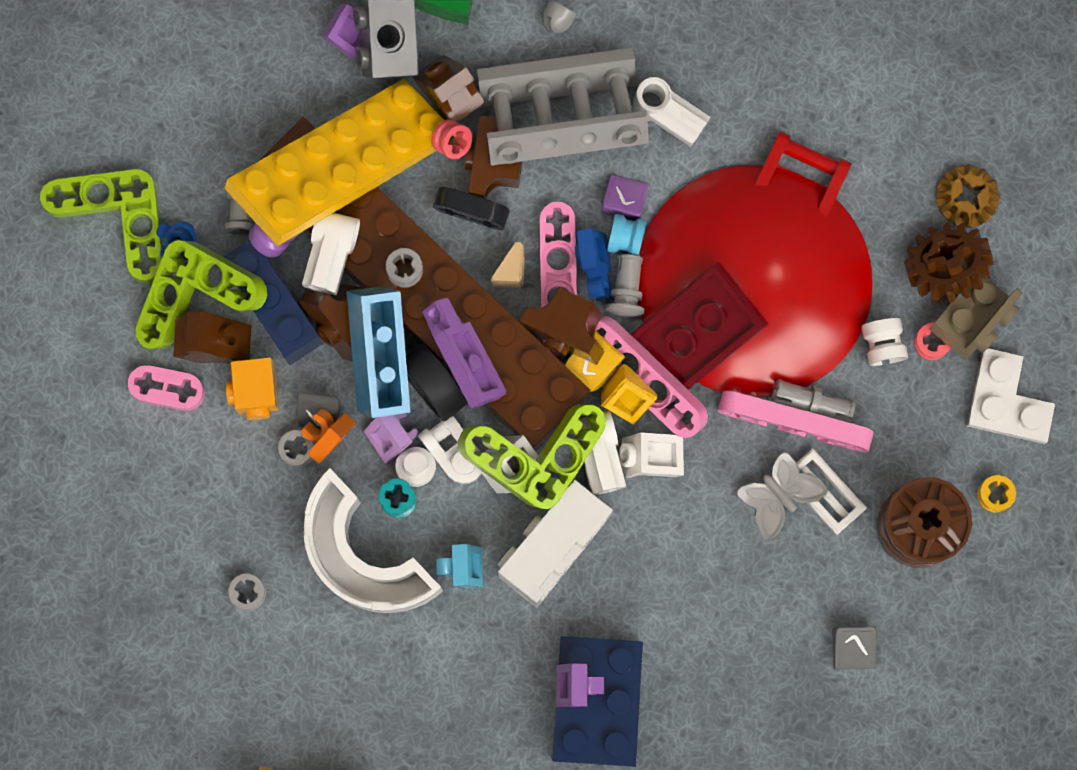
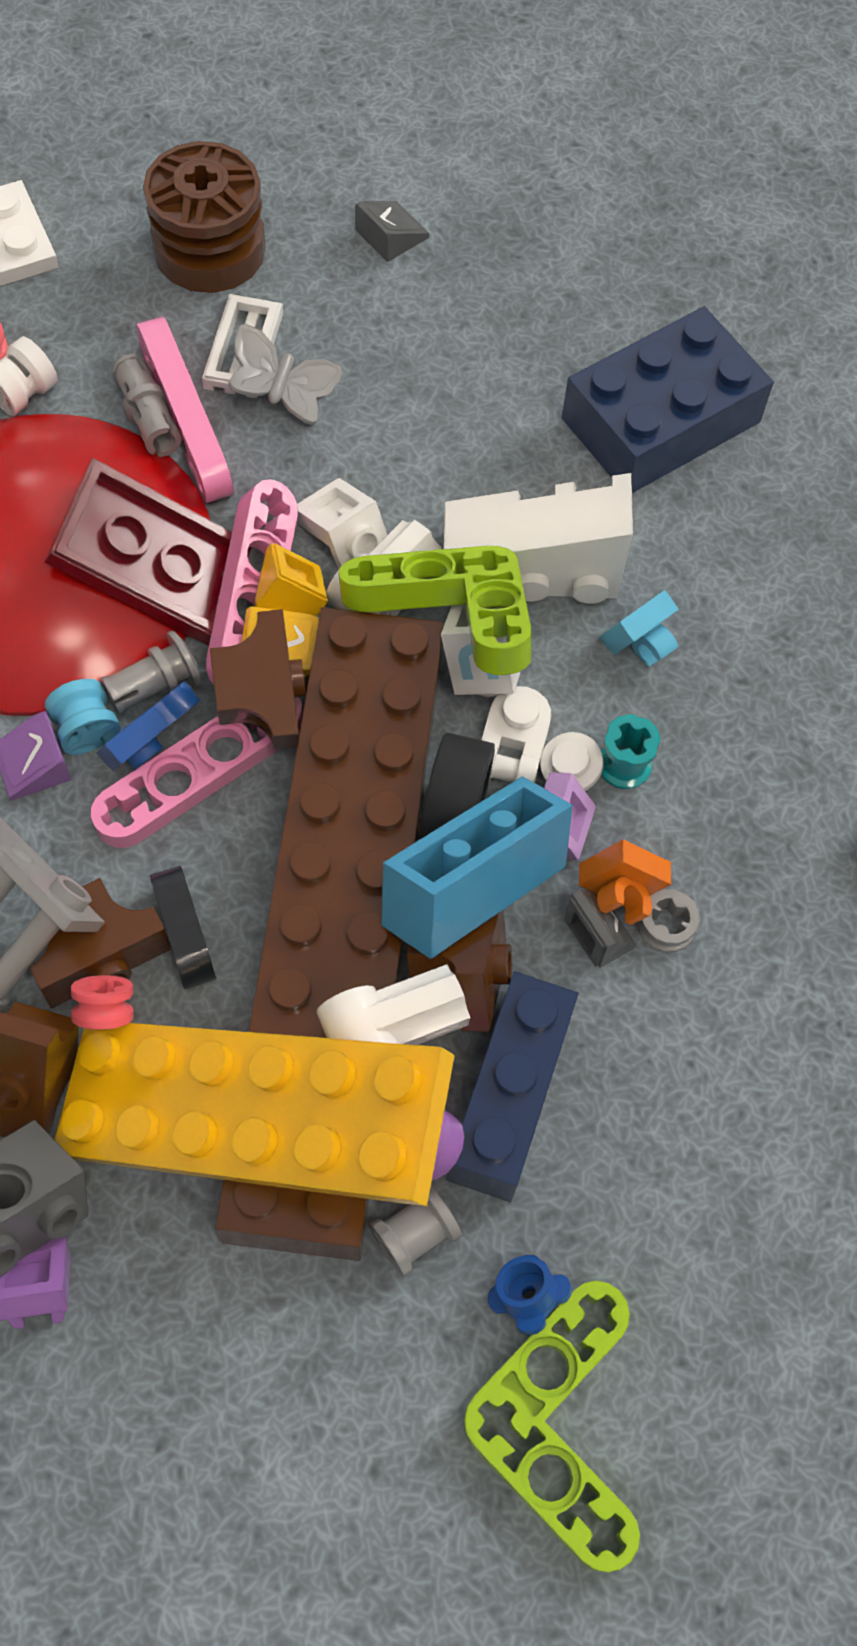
camera: 130 degrees left, 15 degrees down
(167, 379) = (749, 1139): bright pink beam -> none
(194, 276) = (565, 1202): lime beam -> none
(211, 338) = (631, 1127): reddish brown brick -> none
(253, 388) = (642, 1024): light orange brick -> none
(334, 561) = (770, 730): white brick -> none
(392, 270) = (320, 902): light grey bush -> none
(464, 354) = (398, 754): medium lavender hinge -> none
(511, 270) = (229, 819): tan slope -> none
(575, 685) = (685, 383): medium lavender tile -> none
(1009, 495) = (106, 188): yellow bush -> none

